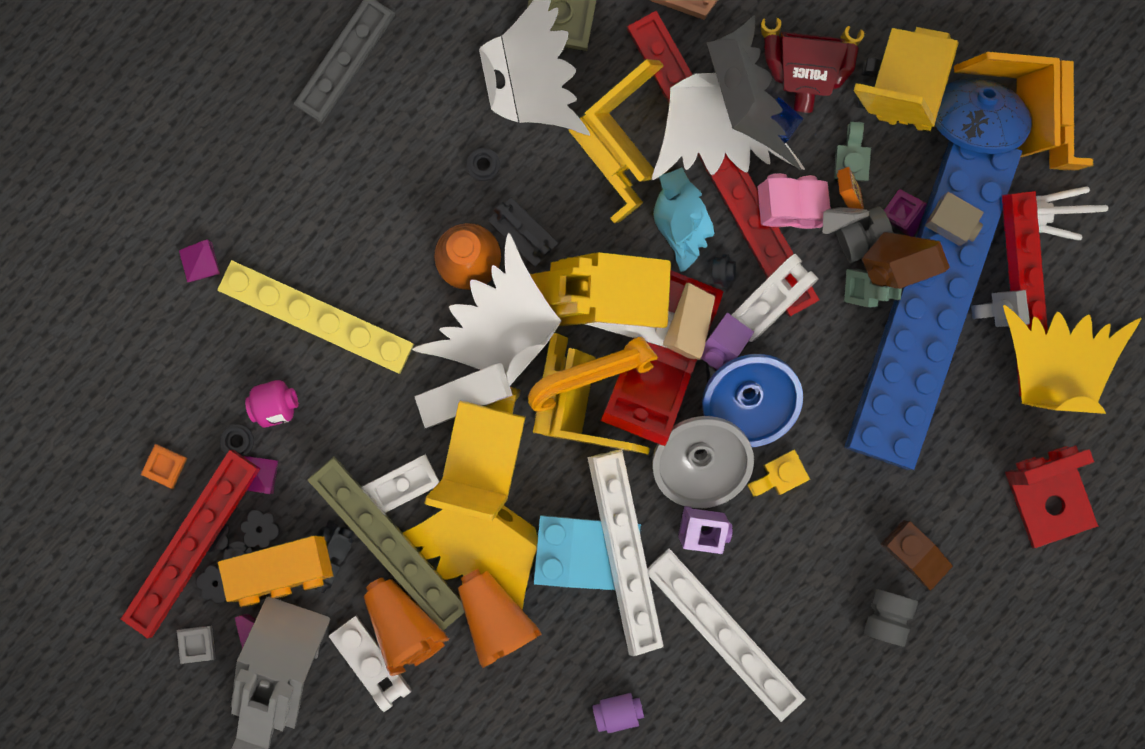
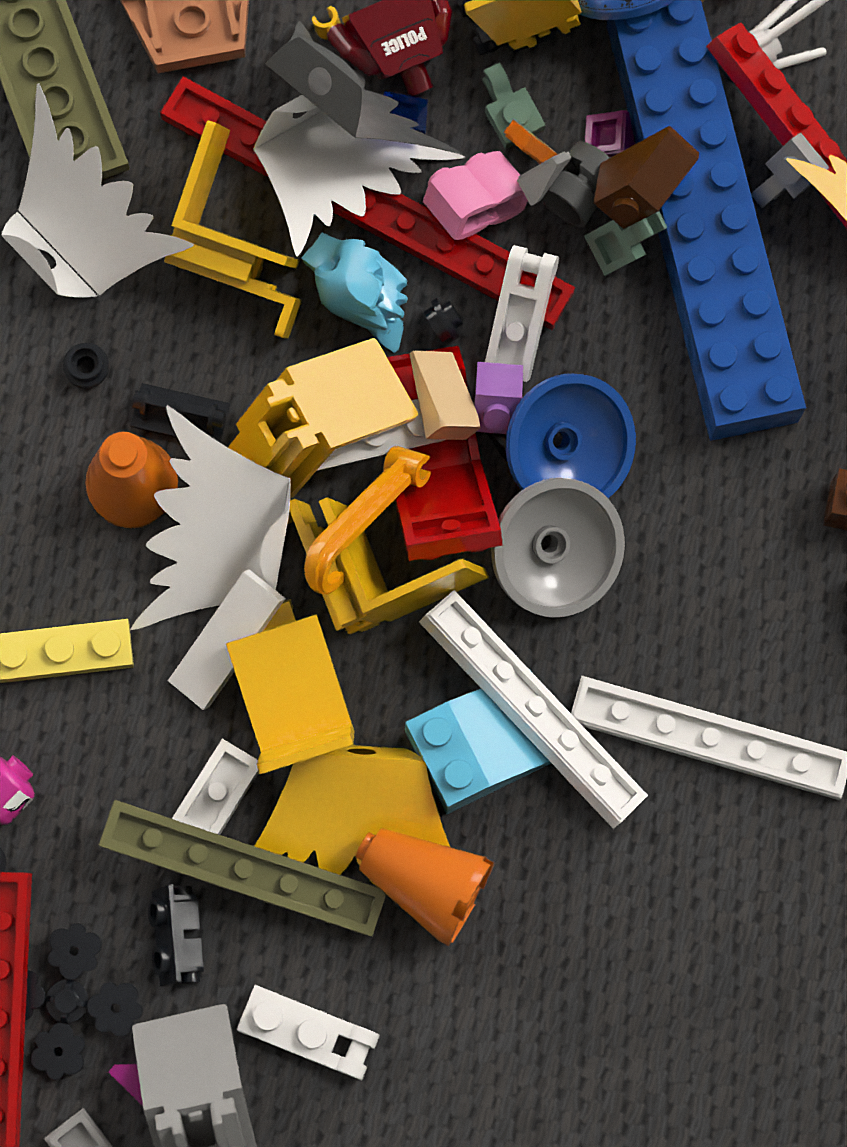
camera: 35 degrees left, 10 degrees down
(266, 477) = (45, 889): magenta slope -> none
(276, 570) = (125, 980): light orange brick -> none
(401, 626) = (320, 960): orange cone -> none
(618, 713) = (644, 905): medium lavender brick -> none
(707, 541) = (592, 634): medium lavender brick -> none
(782, 473) = (659, 512): yellow plate -> none
(955, 219) = (671, 98): dark tan brick -> none

